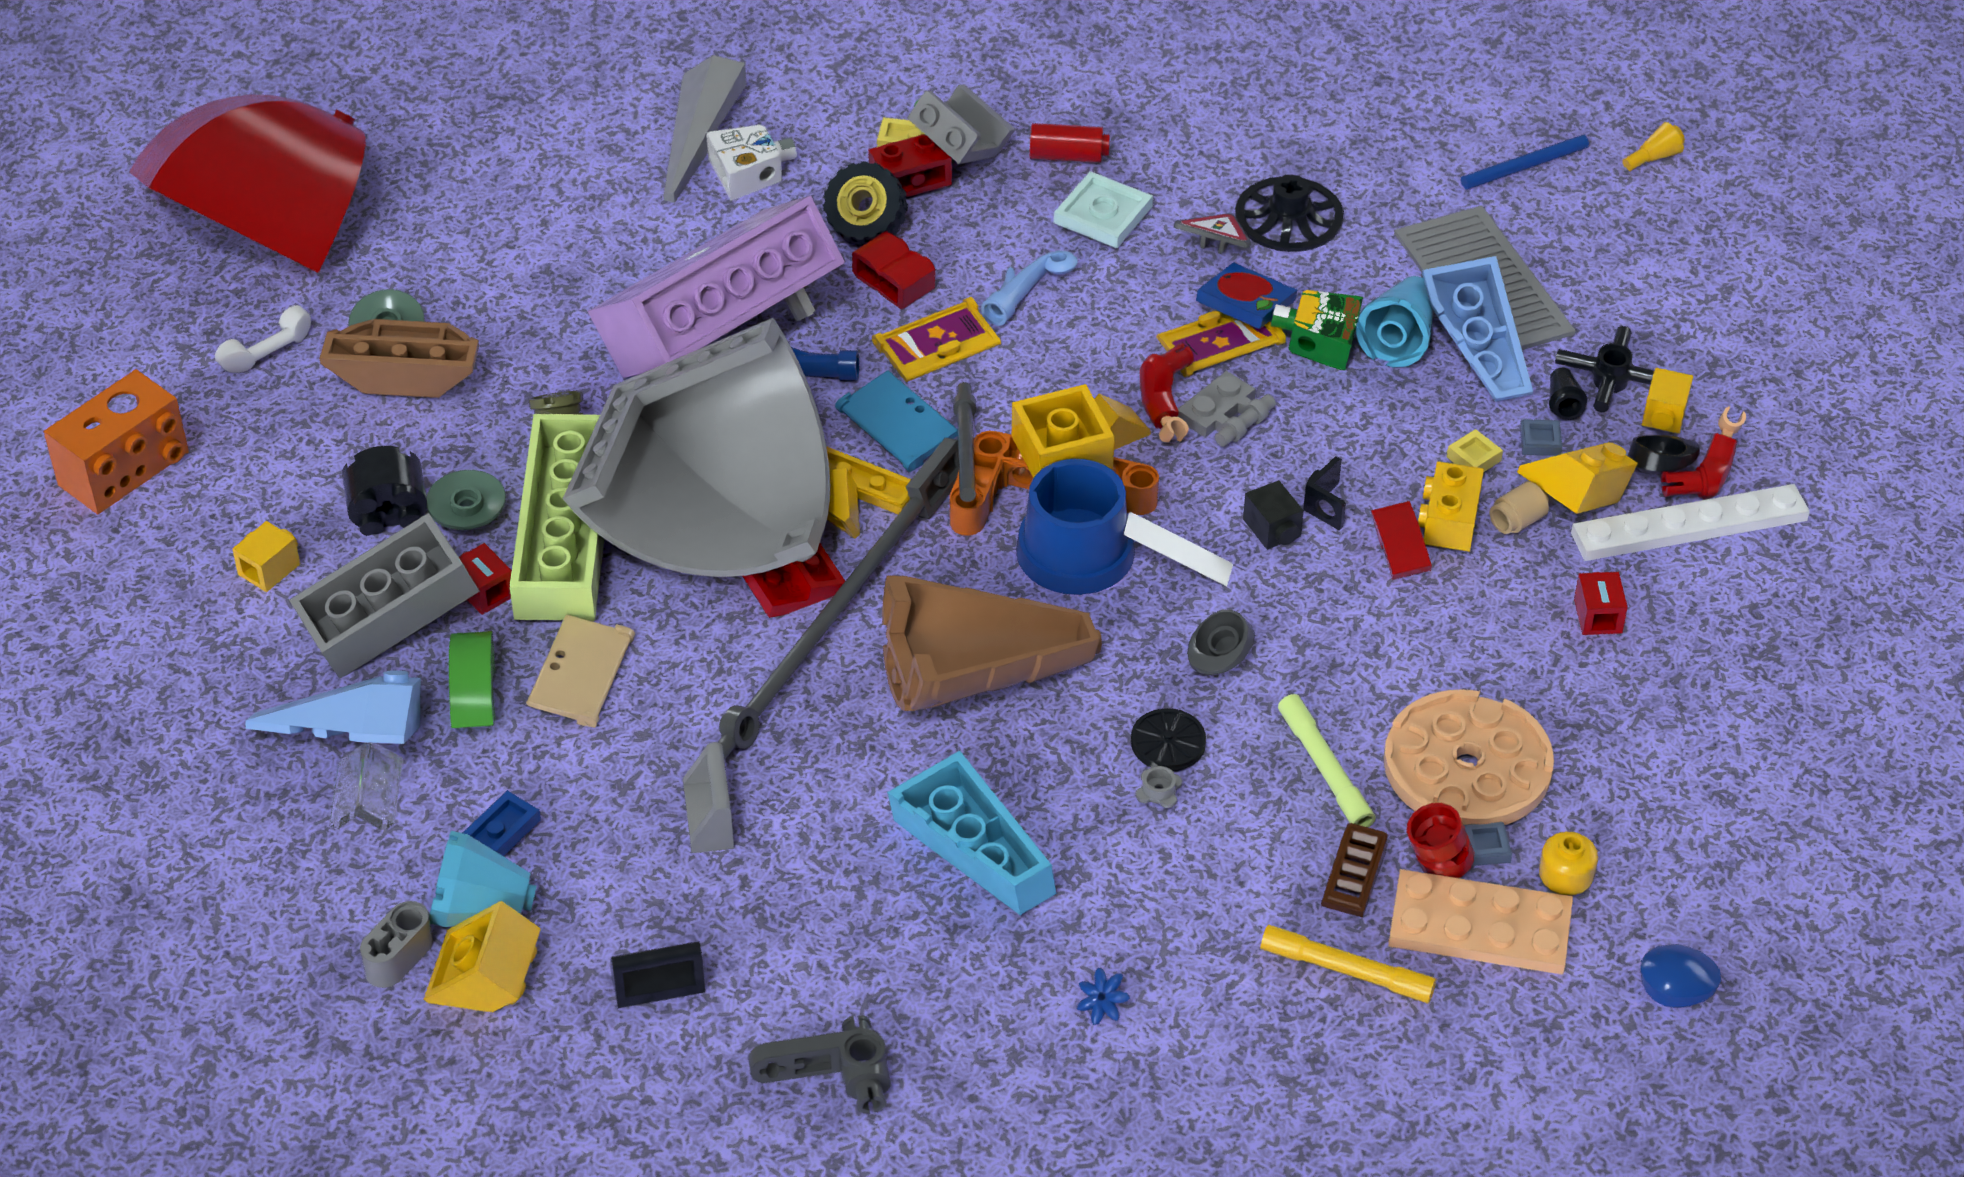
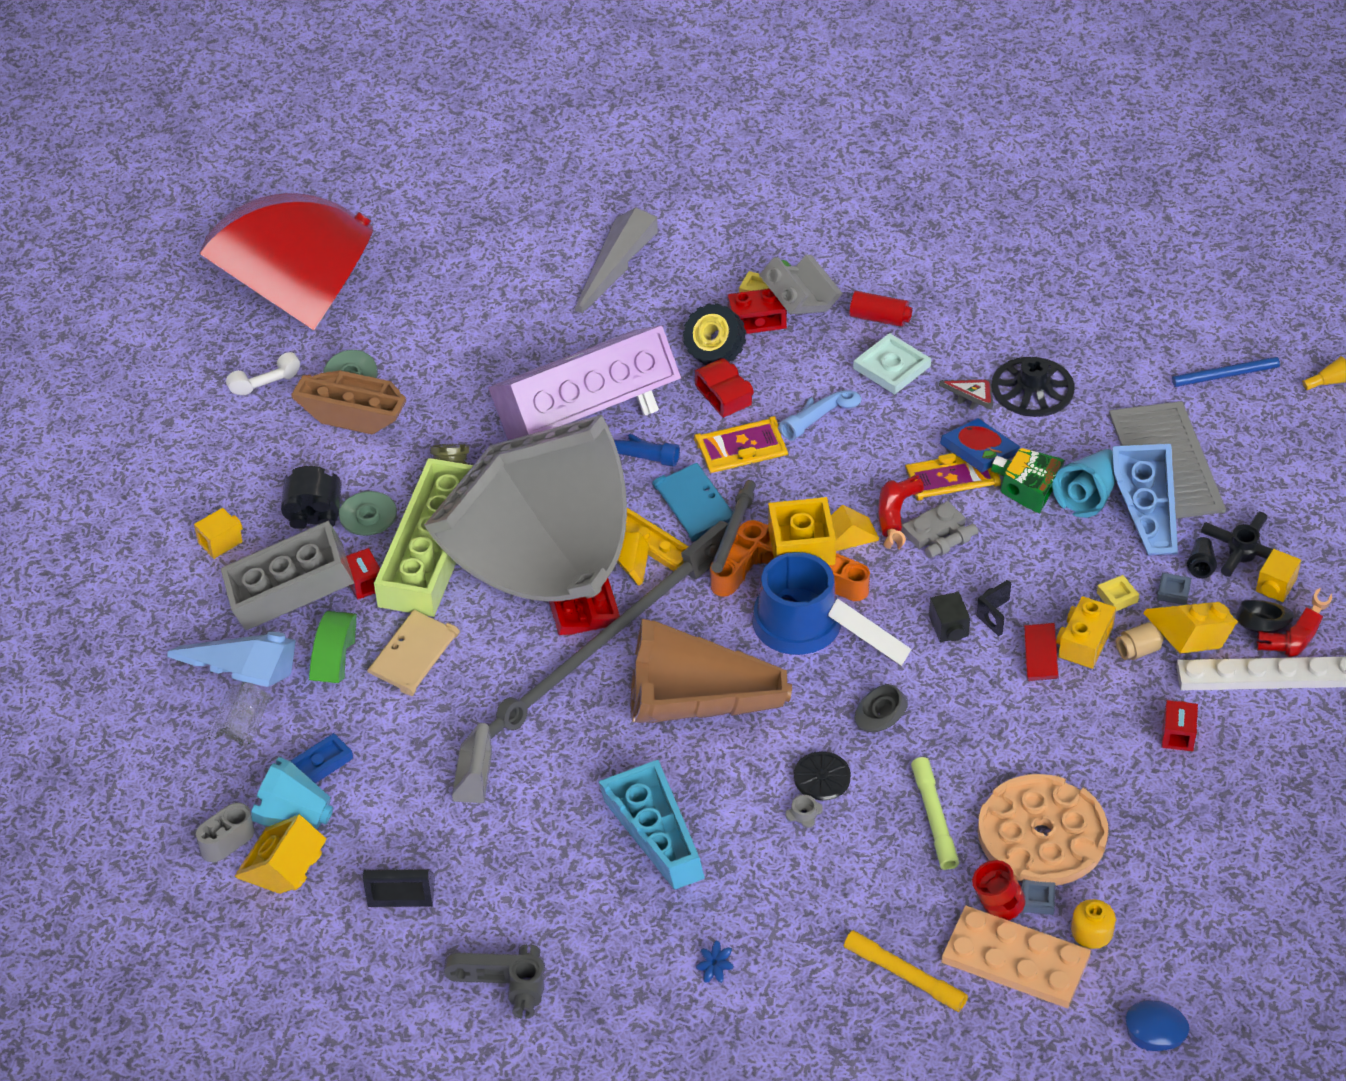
camera: 15 degrees right, 0 degrees up
(123, 450) = (140, 439): orange piece -> none
(747, 158) = (642, 288): white torso -> none
(1361, 845) = (940, 882): reddish brown slope -> none

